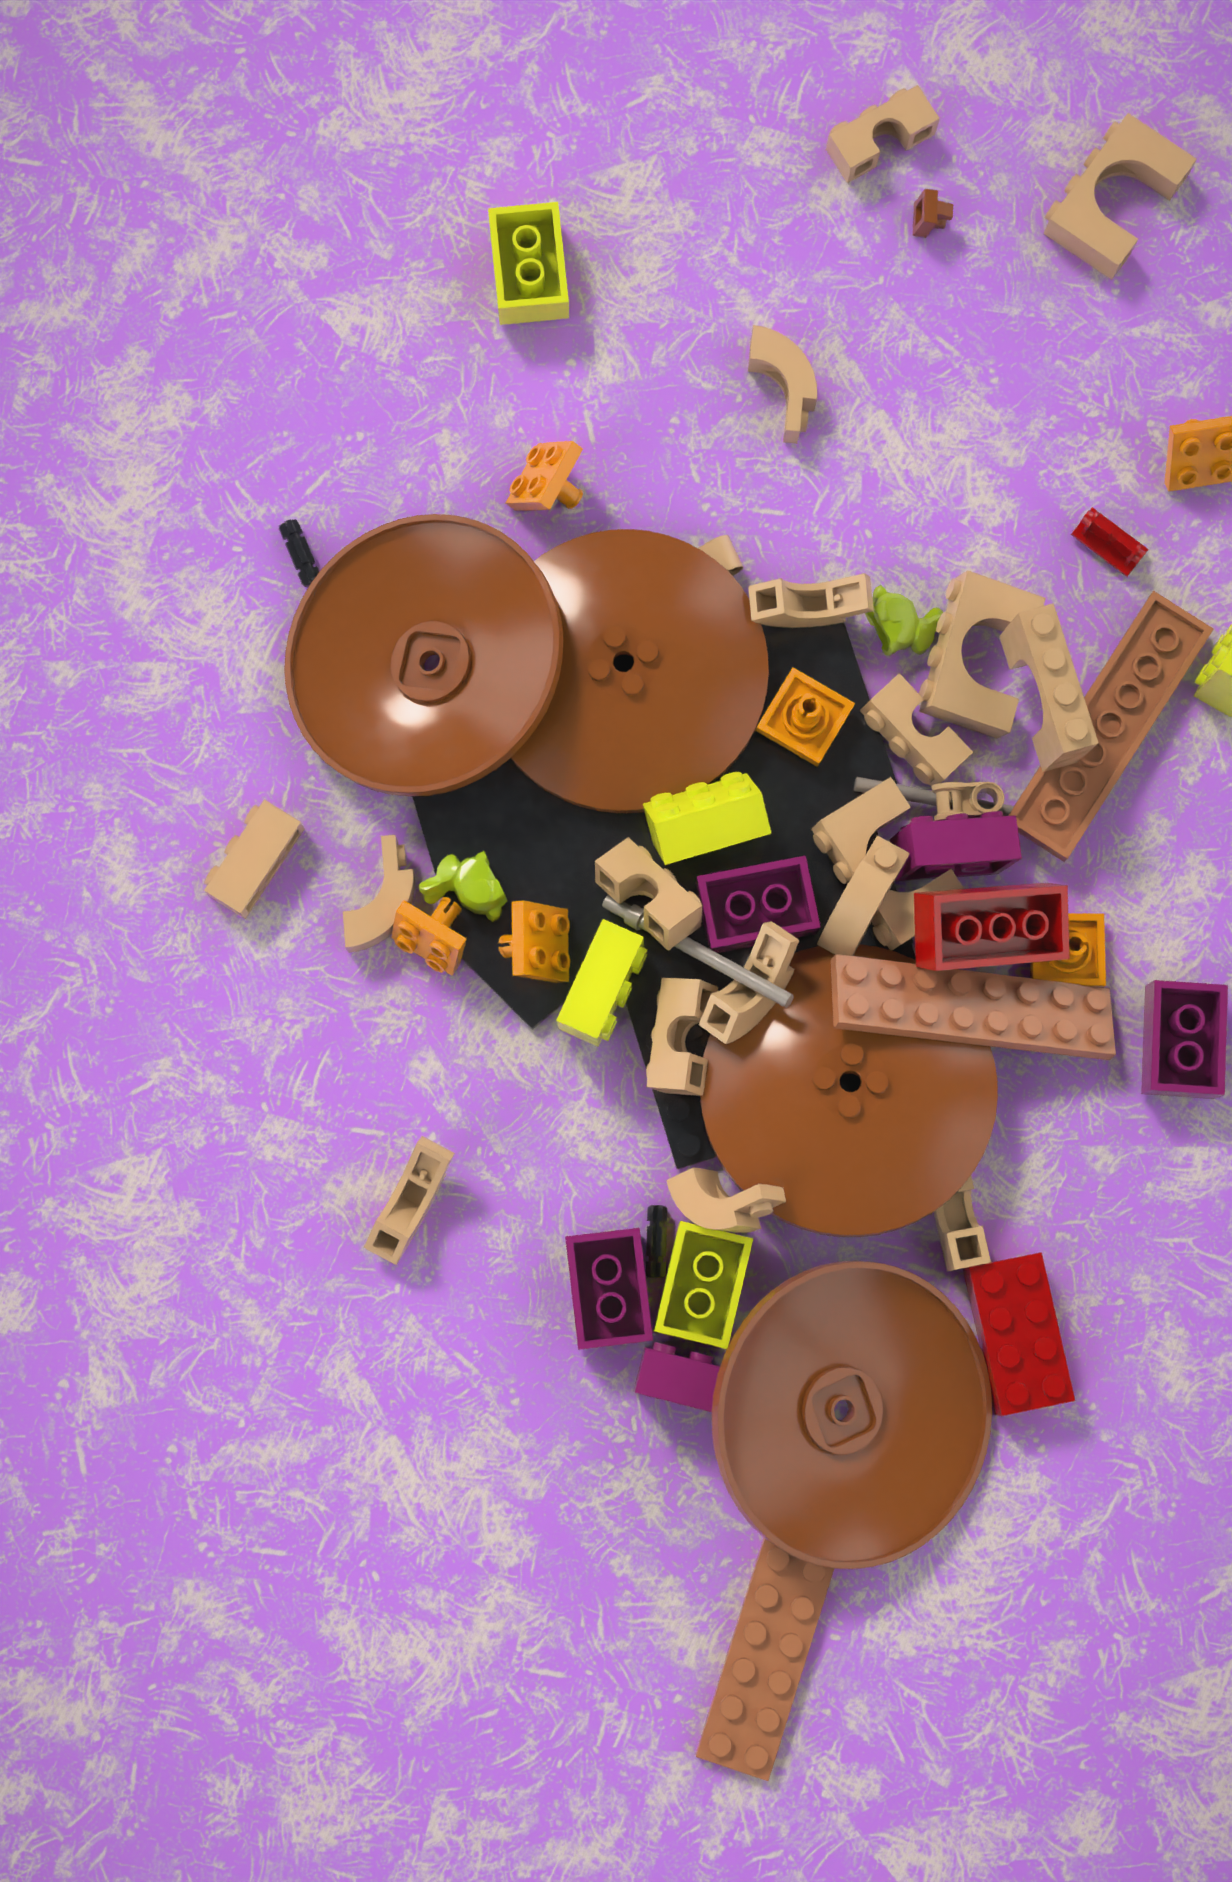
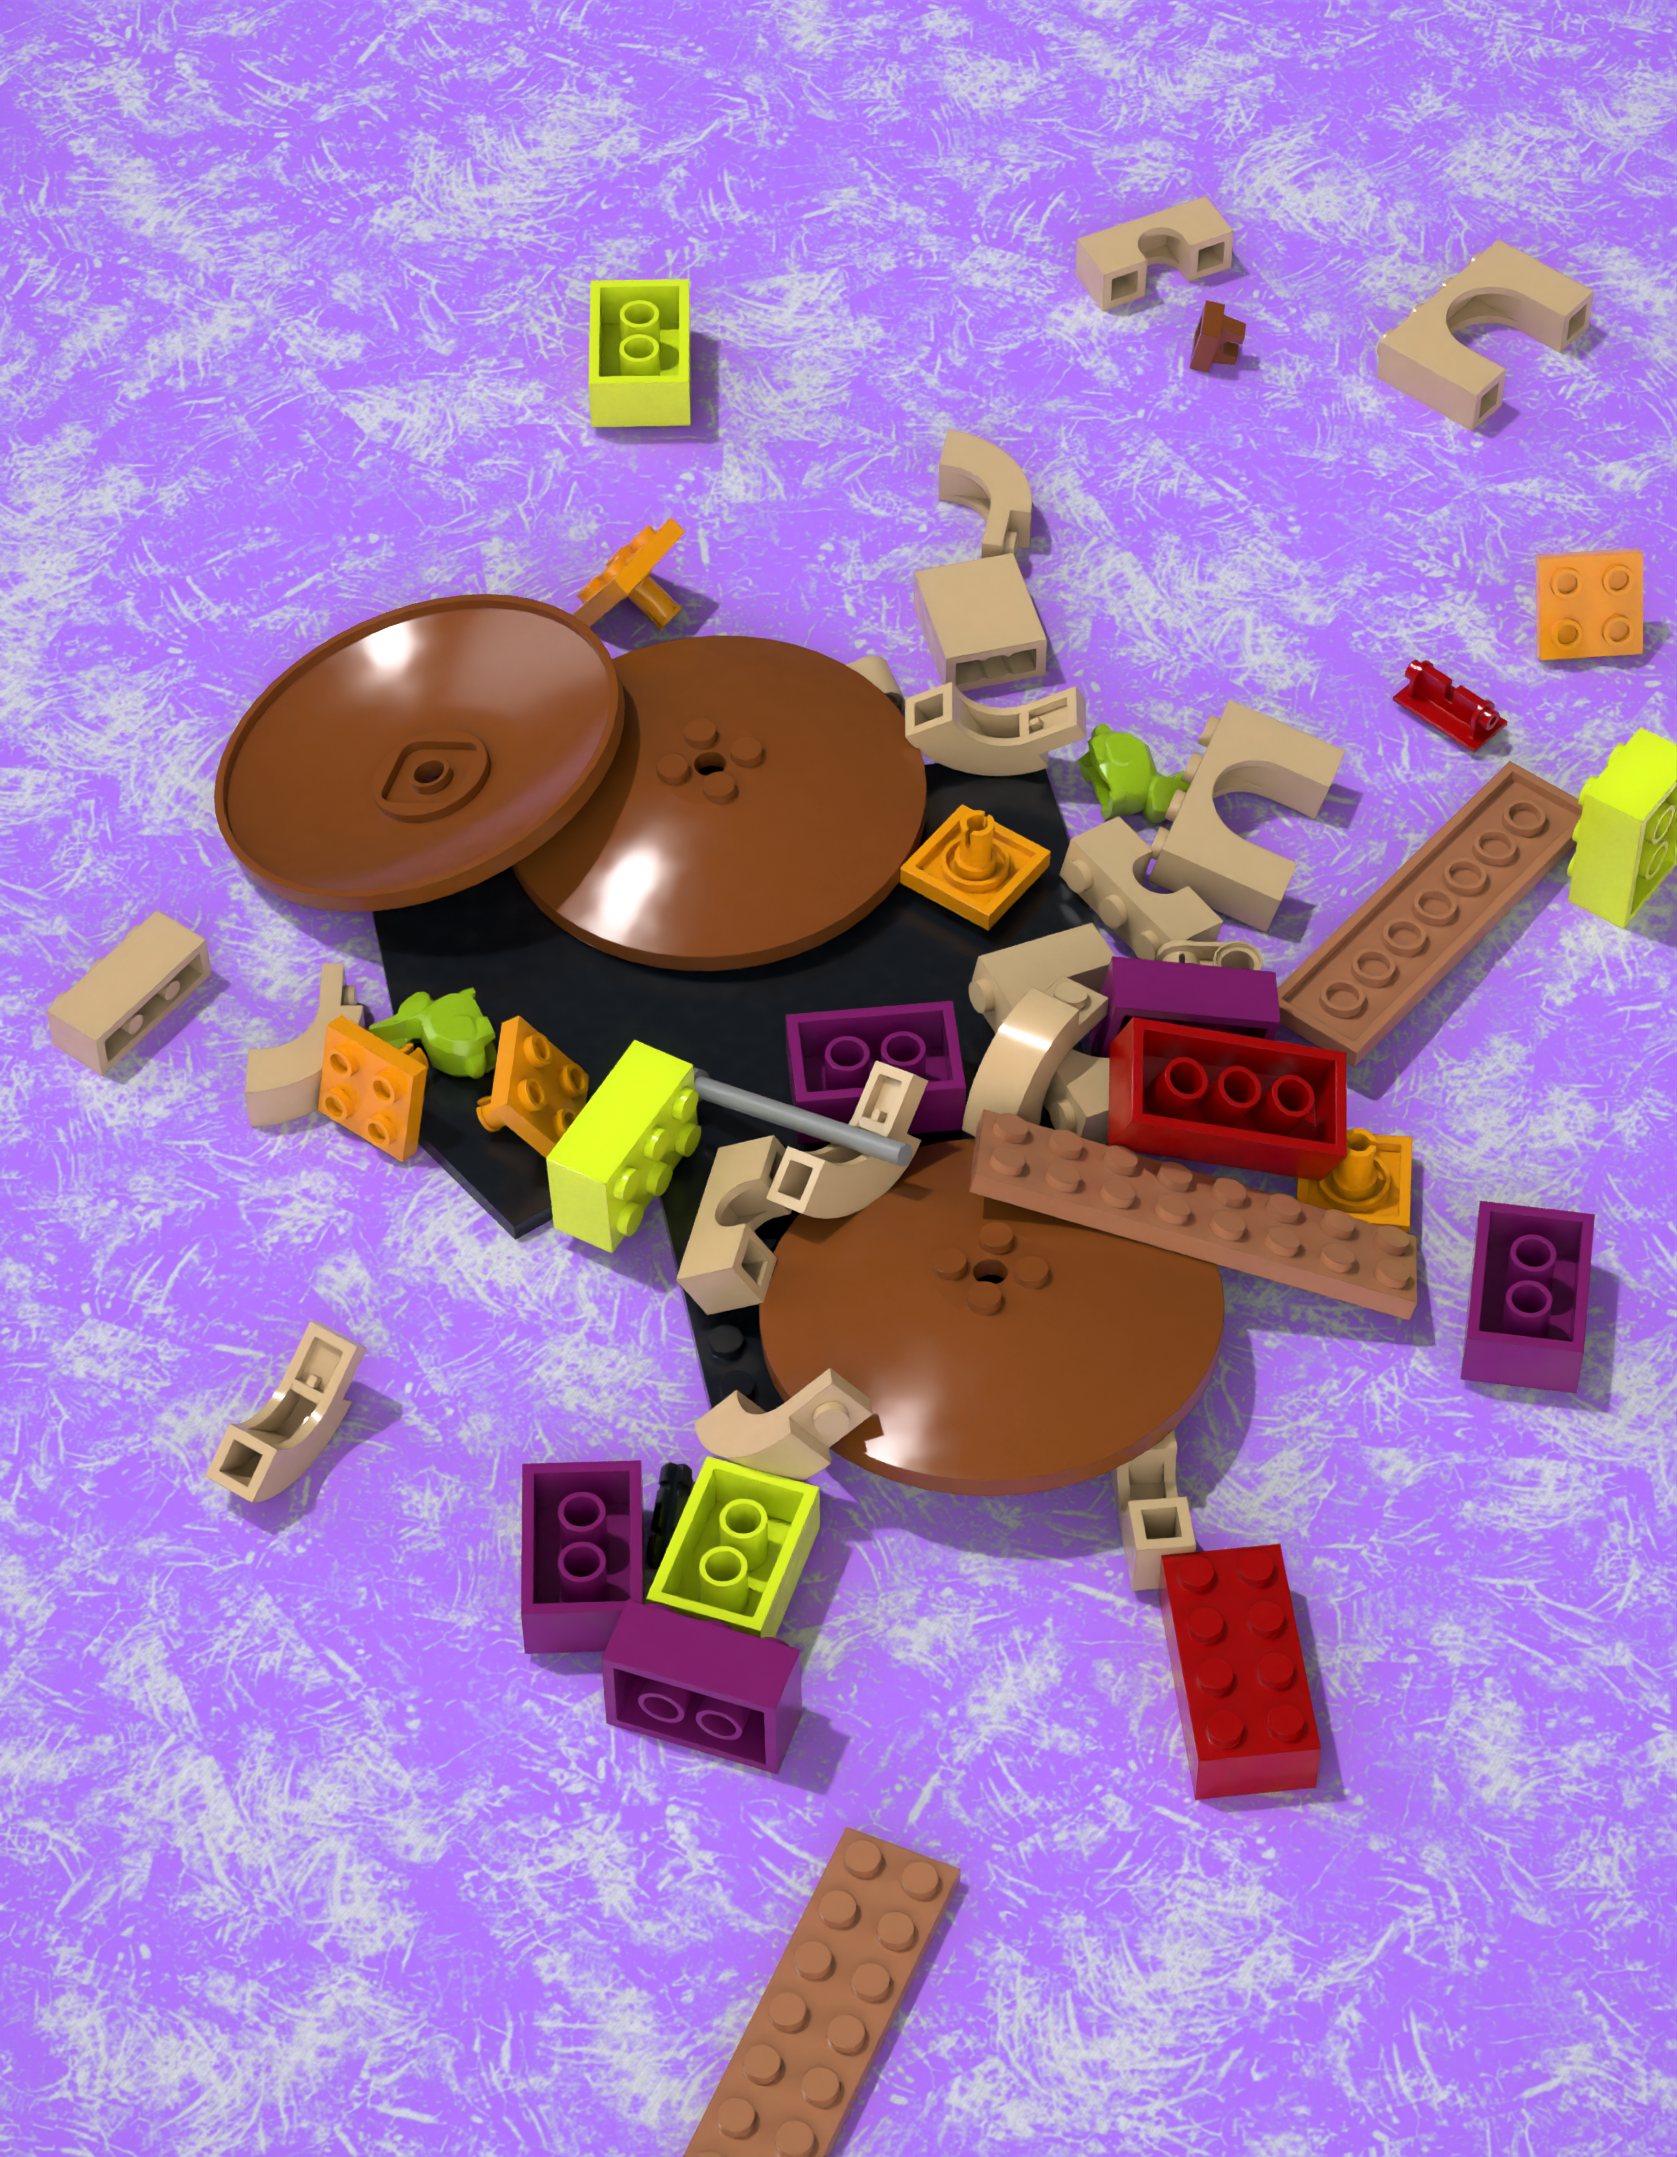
camera: 10 degrees right, 30 degrees down
(299, 551) = (261, 648): black axle -> none
(632, 872) = (734, 1048): tan arch -> none
(706, 817) = (809, 951): neon yellow brick -> none
(787, 491) = (980, 622): none -> tan brick
(912, 1428) = (1012, 1653): dark orange dish -> none
(1039, 642) = (1327, 783): tan arch -> none

